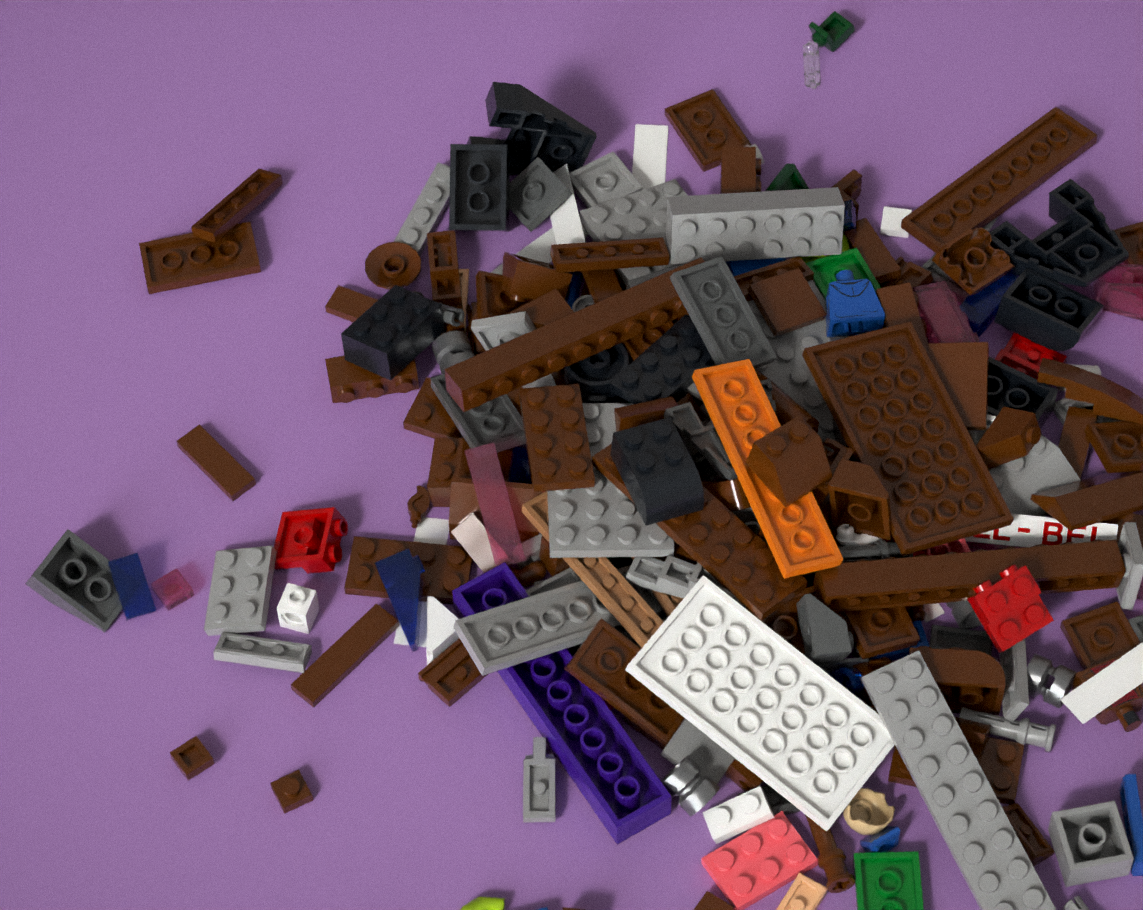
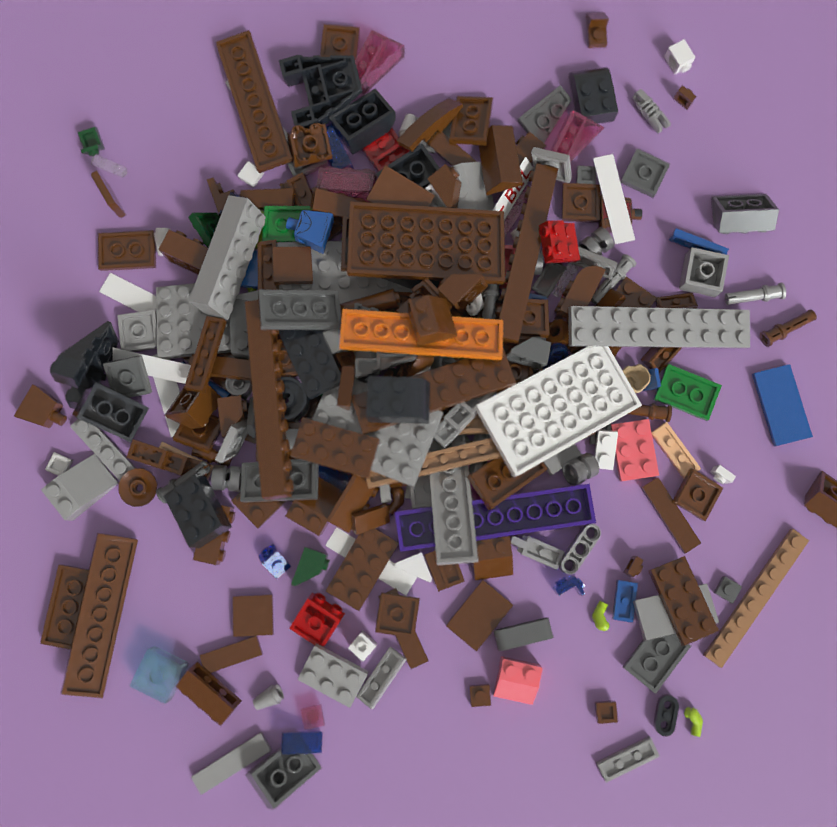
camera: 70 degrees left, 25 degrees up
(64, 515) = (231, 763): none -> light grey tile
(153, 451) = (208, 693): none -> reddish brown brick
(154, 387) = (159, 674): none -> clear light blue brick
(178, 527) = (269, 697): none -> light grey cone
(192, 758) = (434, 747): reddish brown plate -> none
(204, 290) = (99, 616): none -> reddish brown plate
(237, 205) = (42, 569): reddish brown plate -> none
(281, 466) = (253, 615): none -> reddish brown tile
(334, 828) = (517, 680): none -> coral slope
(348, 303) = (155, 522): reddish brown tile -> none
(360, 204) = (80, 487): none -> light grey slope
(361, 634) = (397, 615): none -> reddish brown tile
(366, 459) = (274, 561): none -> clear blue bracket
(379, 502) = (310, 565): none -> dark green slope
(381, 173) = (58, 464): none -> white tile
(405, 589) = (379, 578): clear blue slope -> none
(407, 810) = (523, 634): none -> dark grey beam
(408, 745) = (479, 615): none -> reddish brown tile
(418, 506) = (320, 543): reddish brown piece -> none
(445, 121) = (40, 408): none -> reddish brown torso
(495, 505) = (357, 502): clear pink tile -> none
(500, 724) = (494, 558): none -> reddish brown slope
(508, 840) = (564, 585): none -> clear blue bracket
(580, 847) = (588, 545): none -> light grey beam
(769, 74) = (108, 194): none -> reddish brown tile
(928, 843) = (659, 357): none -> reddish brown slope

